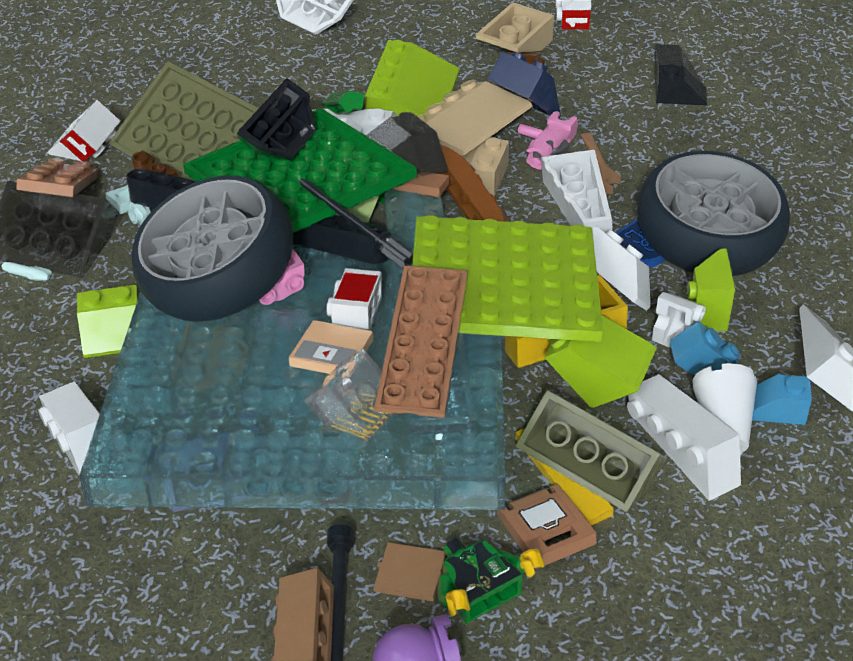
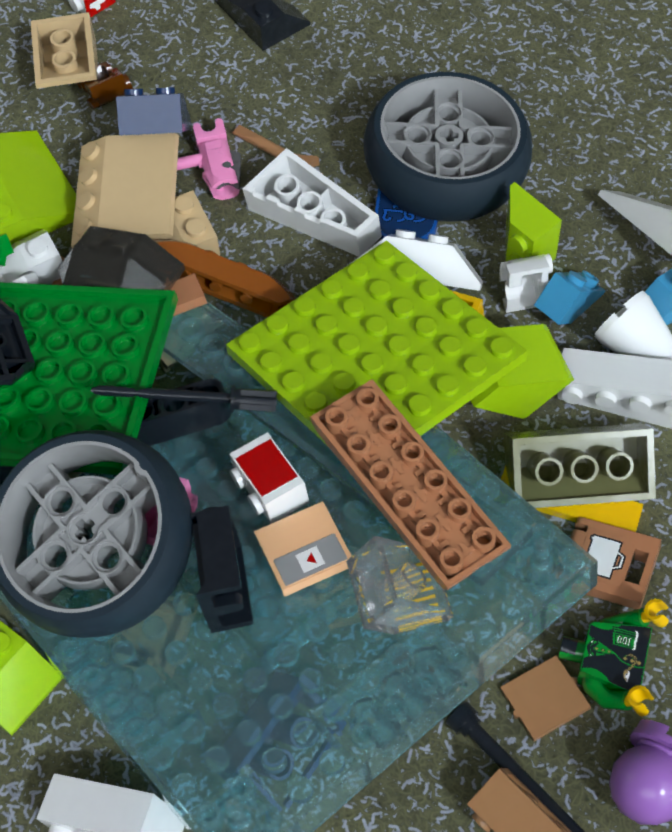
camera: 40 degrees left, 15 degrees up
(281, 294) = (221, 570): none -> black window

